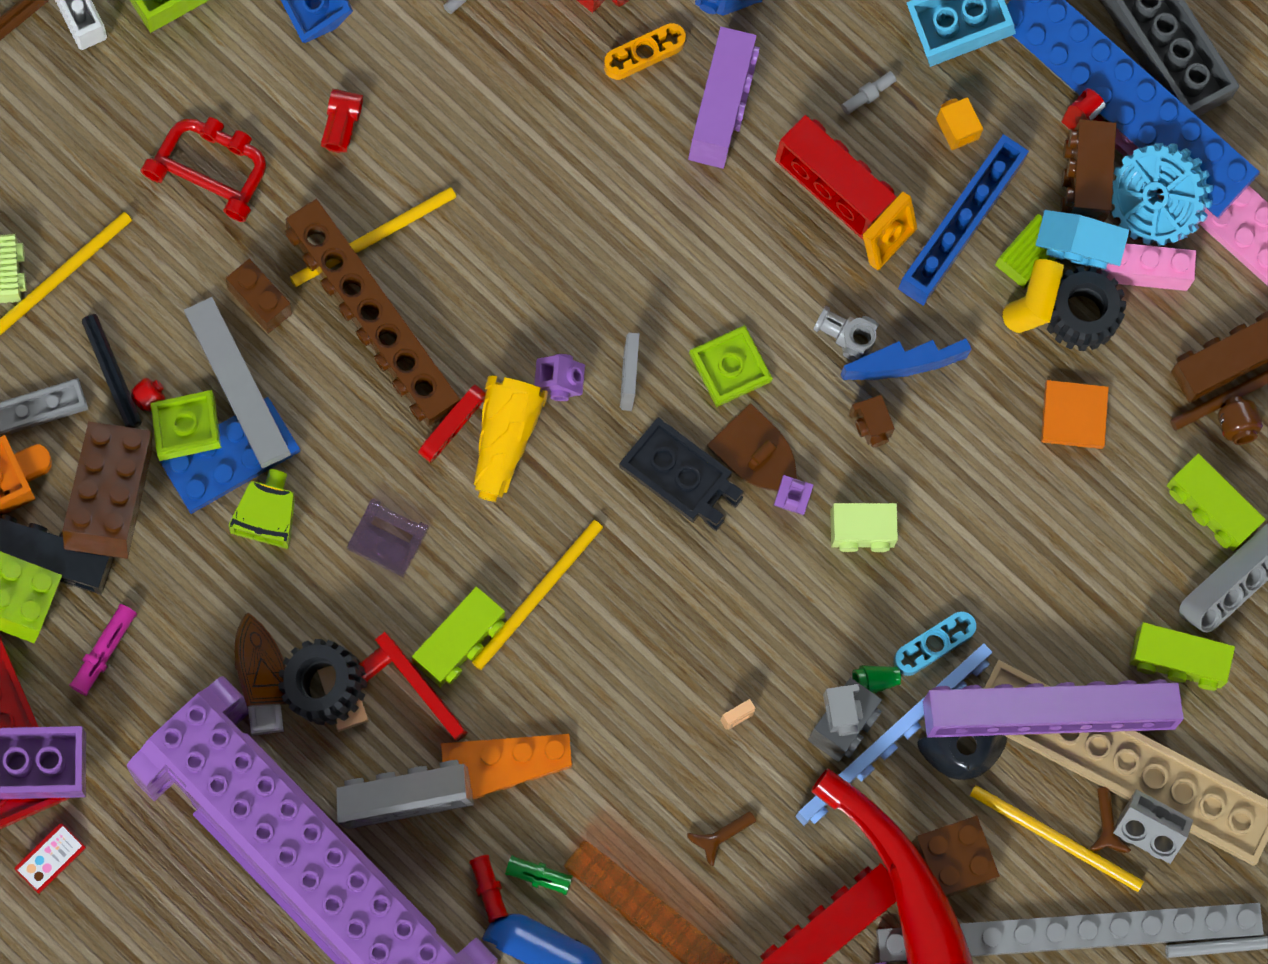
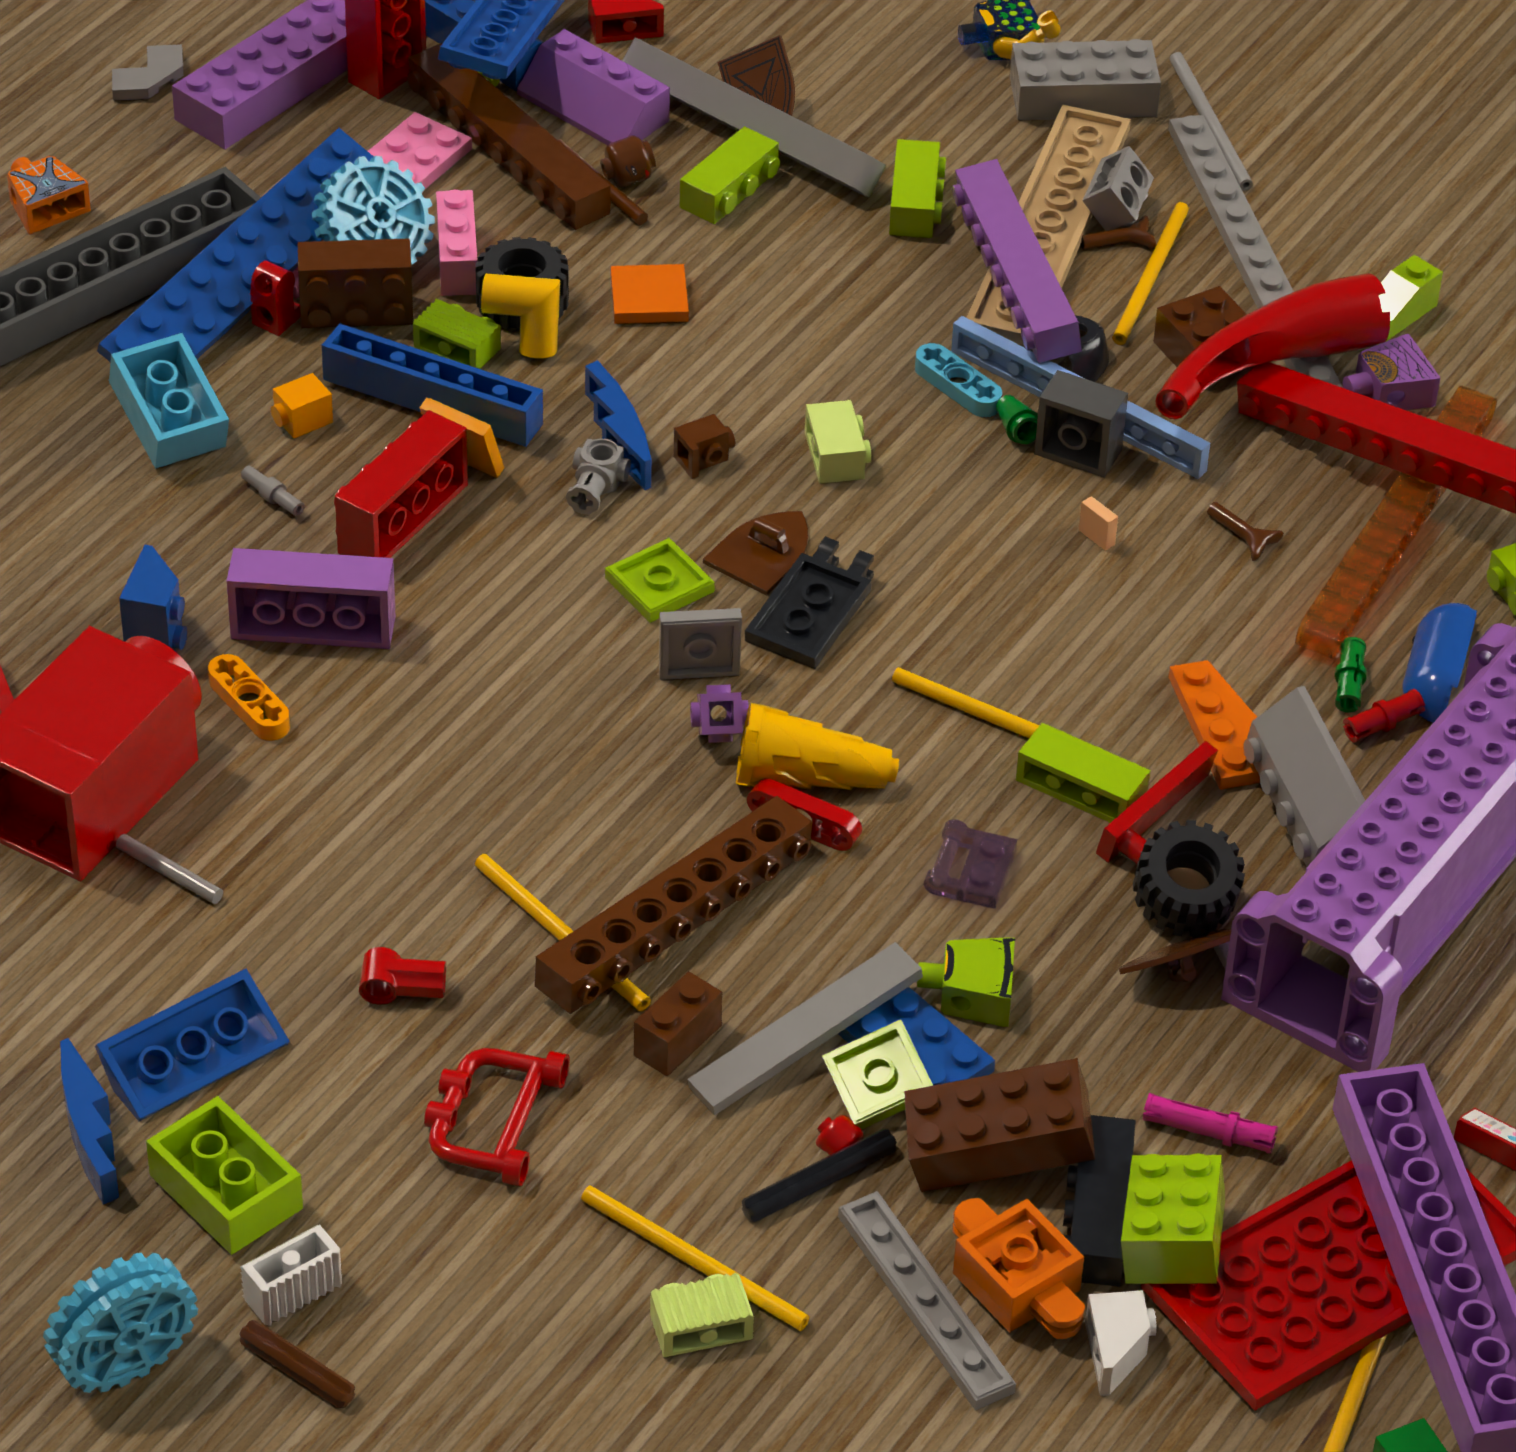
camera: 90 degrees left, 30 degrees down
(793, 495) = (812, 506): medium lavender tile -> none
(843, 709) = (1084, 386): light grey brick -> none
(1081, 239) = (448, 263): medium azure brick -> none

